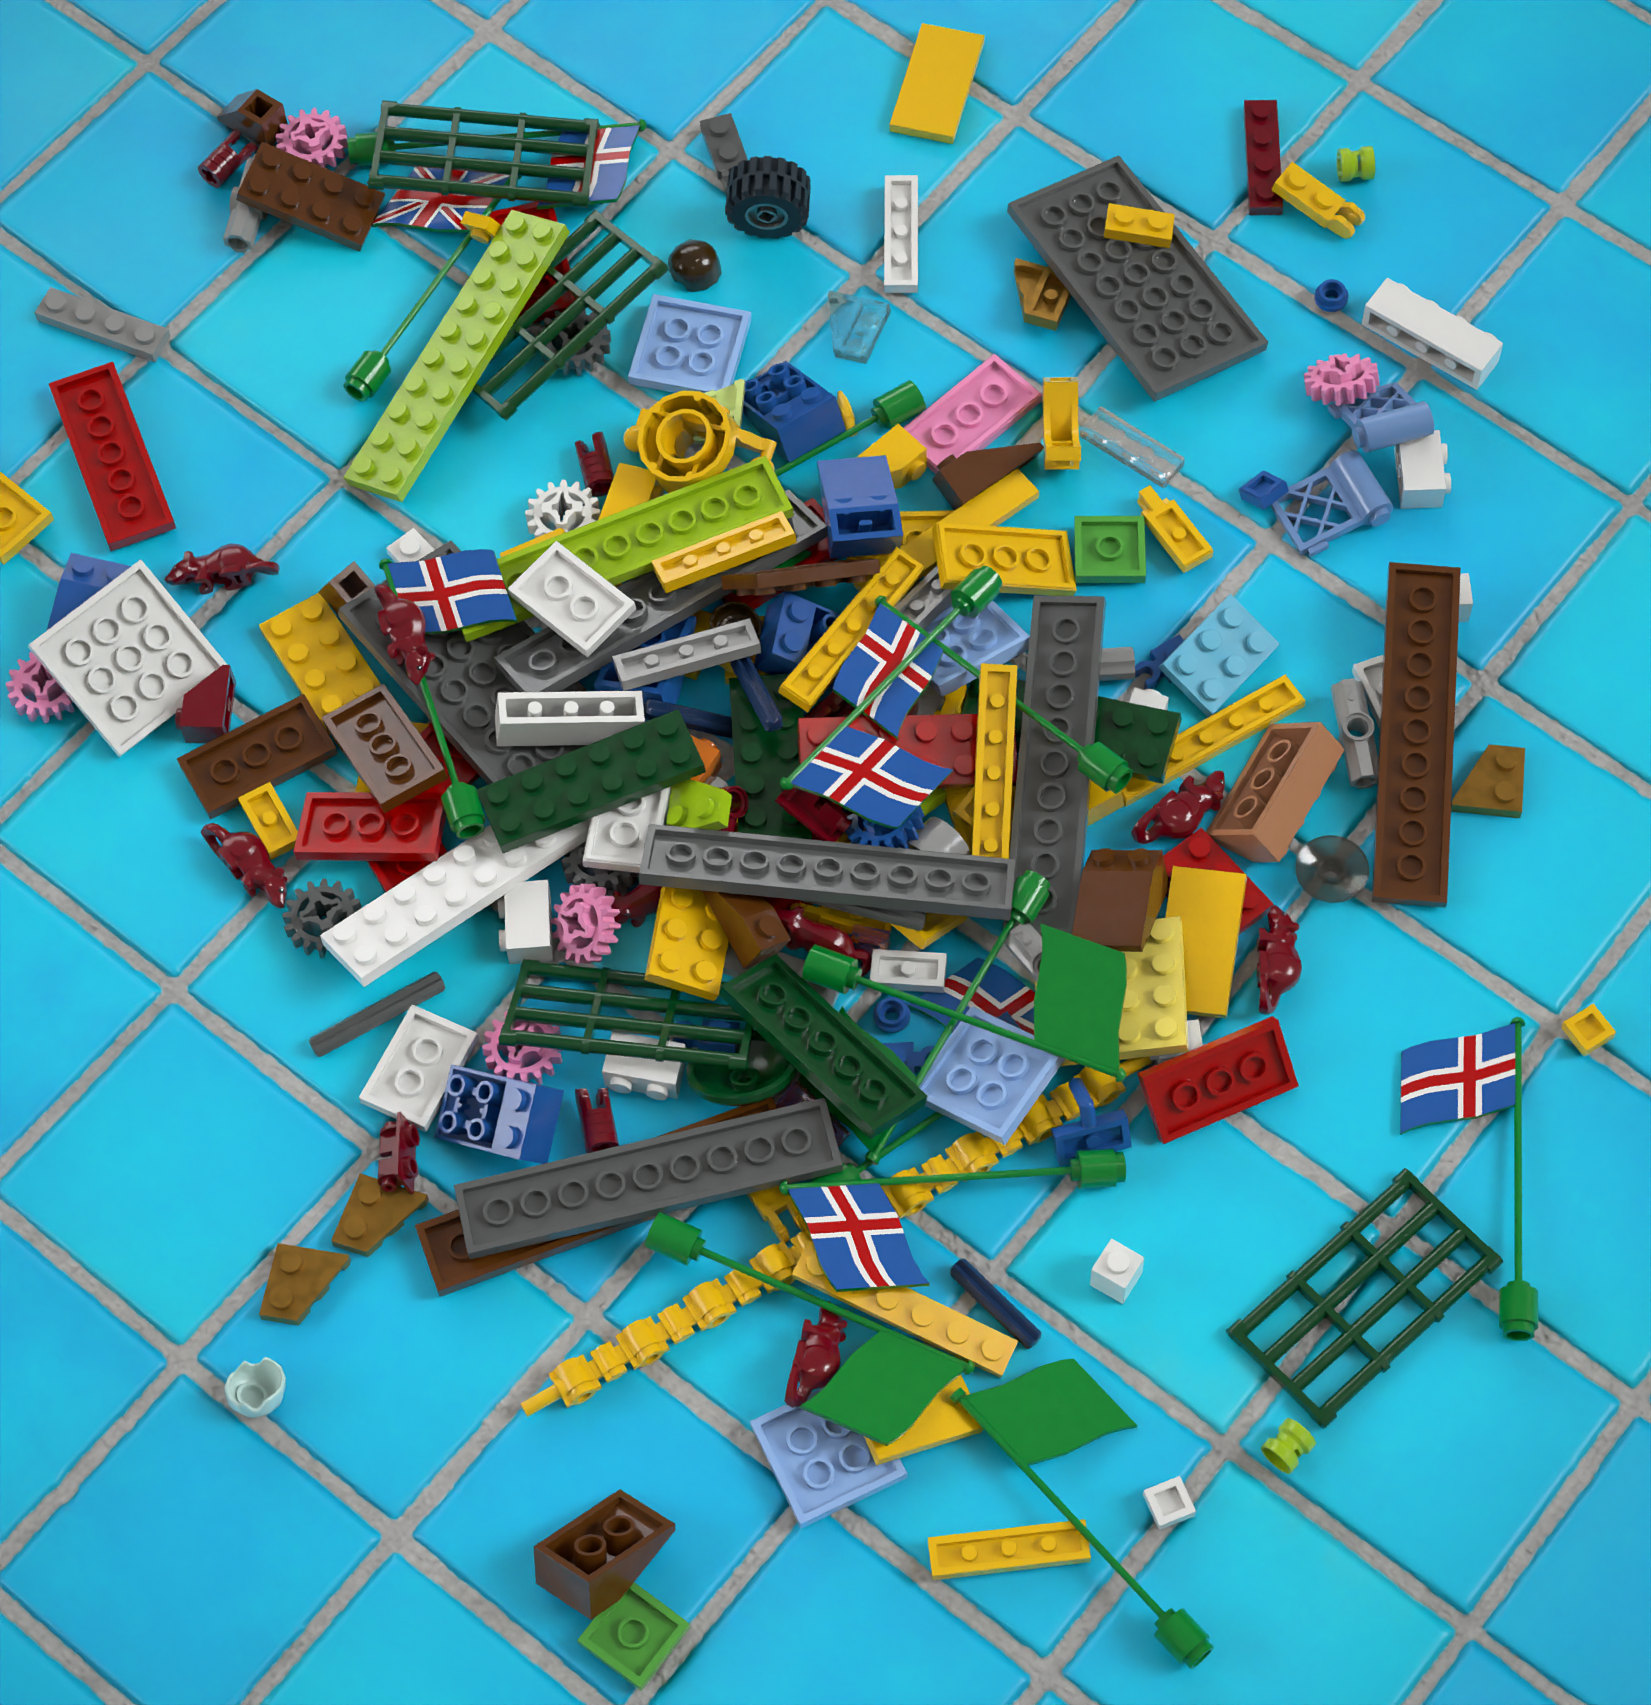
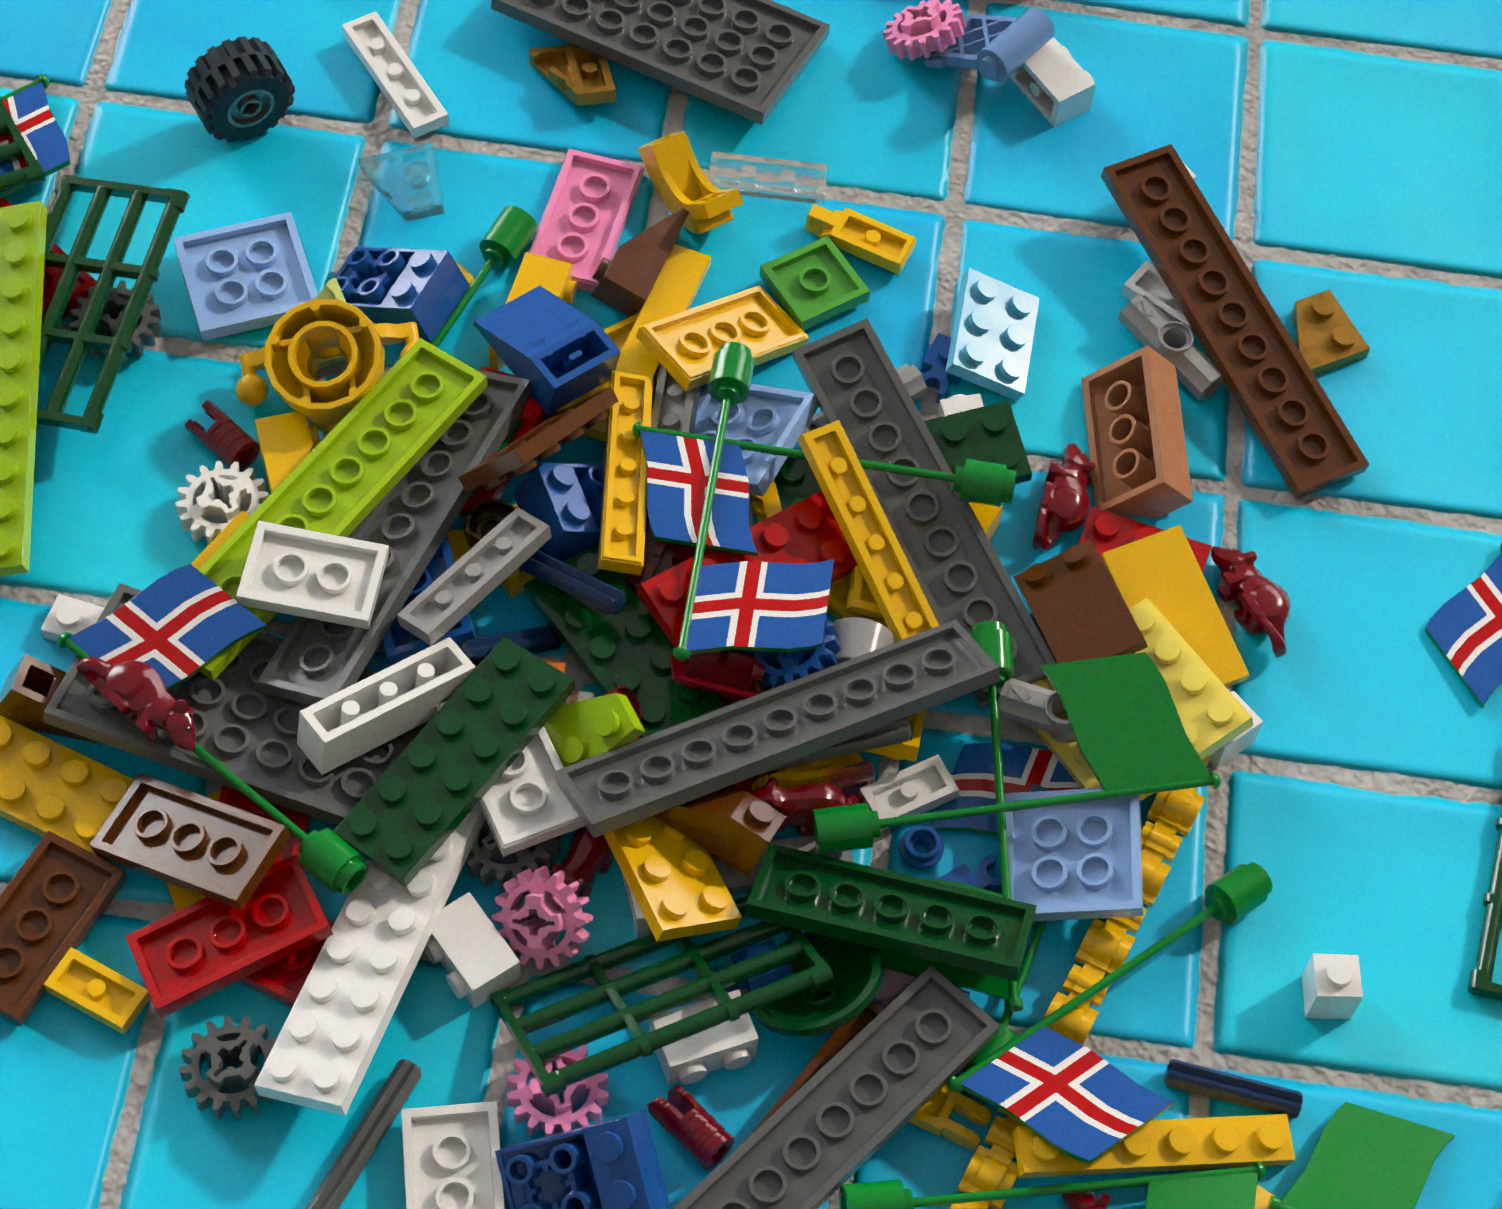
camera: 40 degrees left, 5 degrees down
(248, 858) = (98, 1045): dark red animal -> none
(695, 265) = (205, 188): dark brown hair -> none
(723, 145) = (151, 69): dark grey hinge -> none
(724, 551) = (442, 453): yellow plate -> none
(1093, 1131) = (1212, 855): blue plate -> none
(1218, 1079) = (1291, 741): red plate -> none
(1223, 732) = (1052, 391): yellow tile -> none
(1263, 490) = (921, 163): blue tile -> none
(1333, 855) = (1244, 472): clear smoke dish -> none
(1357, 495) = (1011, 128): medium blue piece -> none

